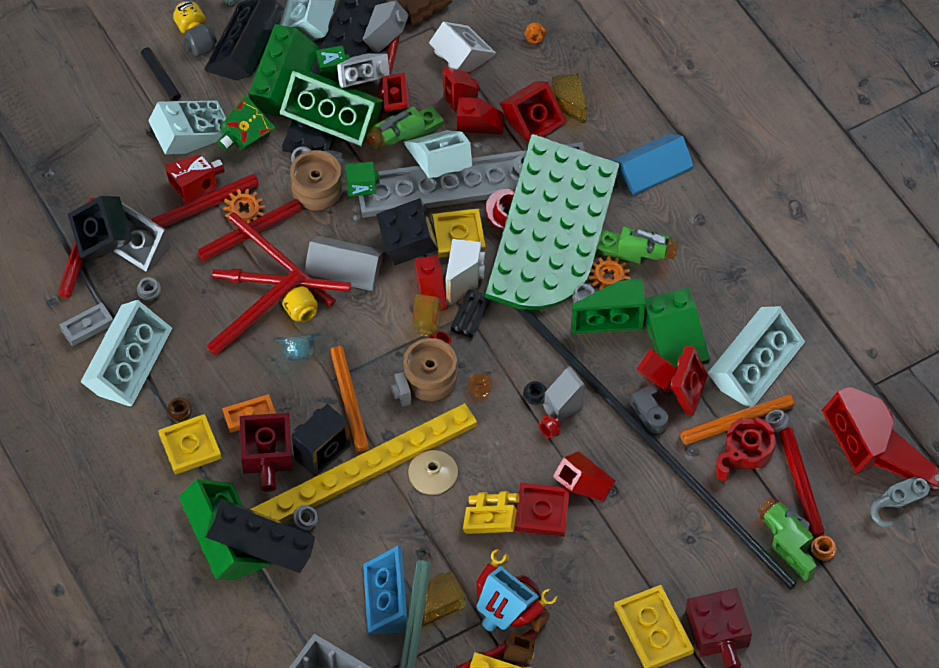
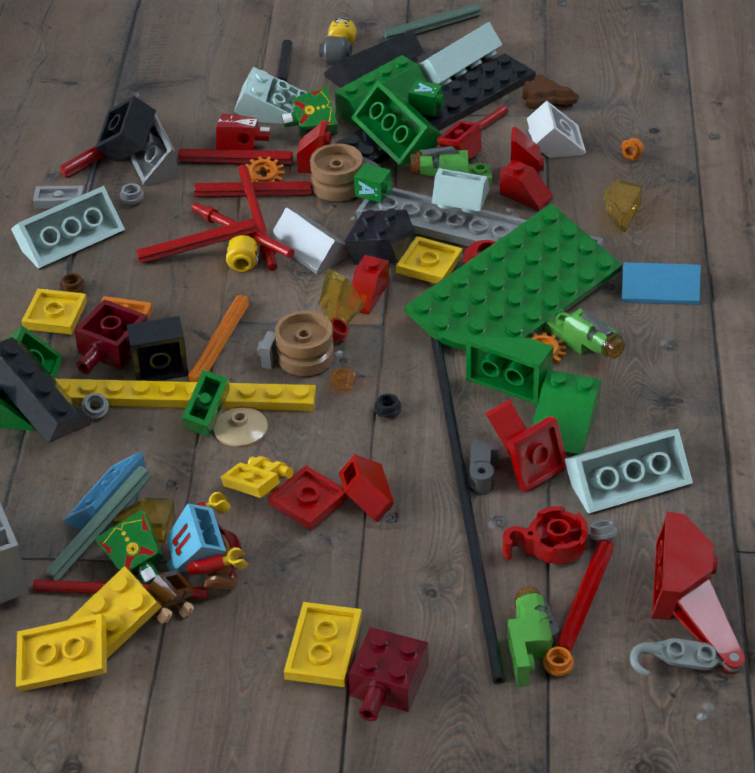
camera: 35 degrees right, 15 degrees down
(276, 165) = (309, 144): none -> red slope
(298, 347) = (209, 279): clear light blue hat -> none
(362, 69) = (441, 107): white slope -> none
(385, 25) = (498, 93): light grey slope -> none
(403, 470) = (206, 403): none -> green brick
(456, 629) = (133, 546): none -> green torso
(464, 269) = (399, 281): white slope -> none
(476, 299) = (388, 321): black tile -> none
(533, 110) = (580, 198): red slope -> none
(550, 426) = (376, 437): red plate -> none
(564, 395) = (406, 415): light grey slope -> none
(723, 423) = (529, 508): orange axle -> none

